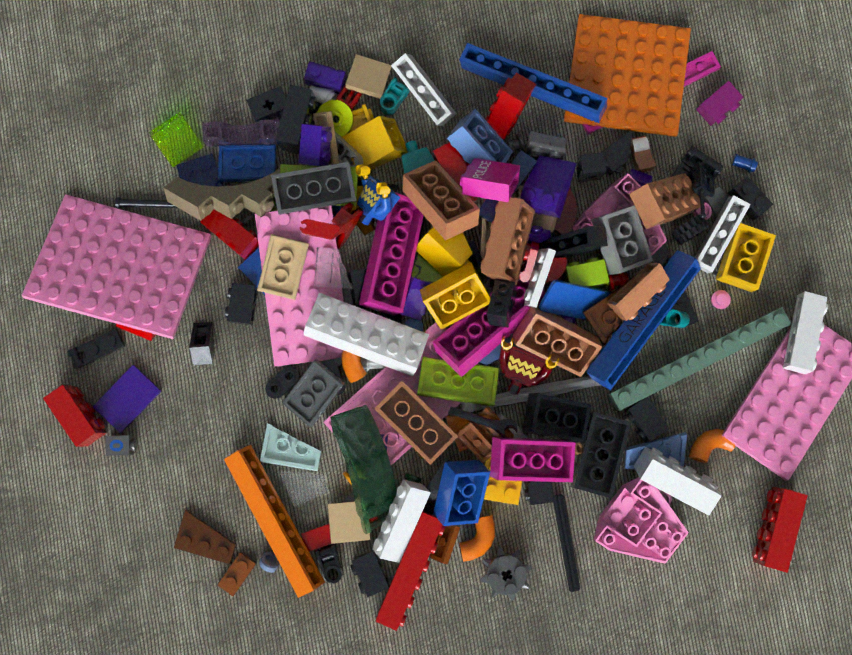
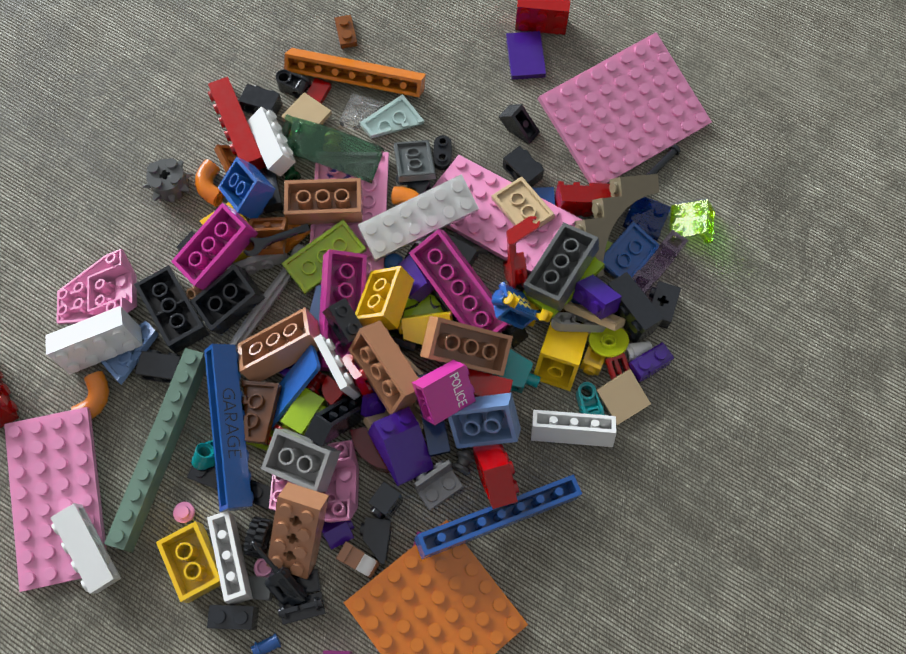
camera: 135 degrees right, 15 degrees down
(96, 348) = (578, 59): black plate -> none
(120, 445) = (497, 26): dark grey brick -> none
(202, 540) = (386, 28): reddish brown wing -> none
(269, 562) = (332, 49): sand blue tile -> none
(330, 270) = (487, 234): clear wing -> none
(523, 367) = (285, 303): dark red torso -> none
(566, 543) = (141, 236): black axle -> none
(639, 291) = (249, 432): nougat slope -> none

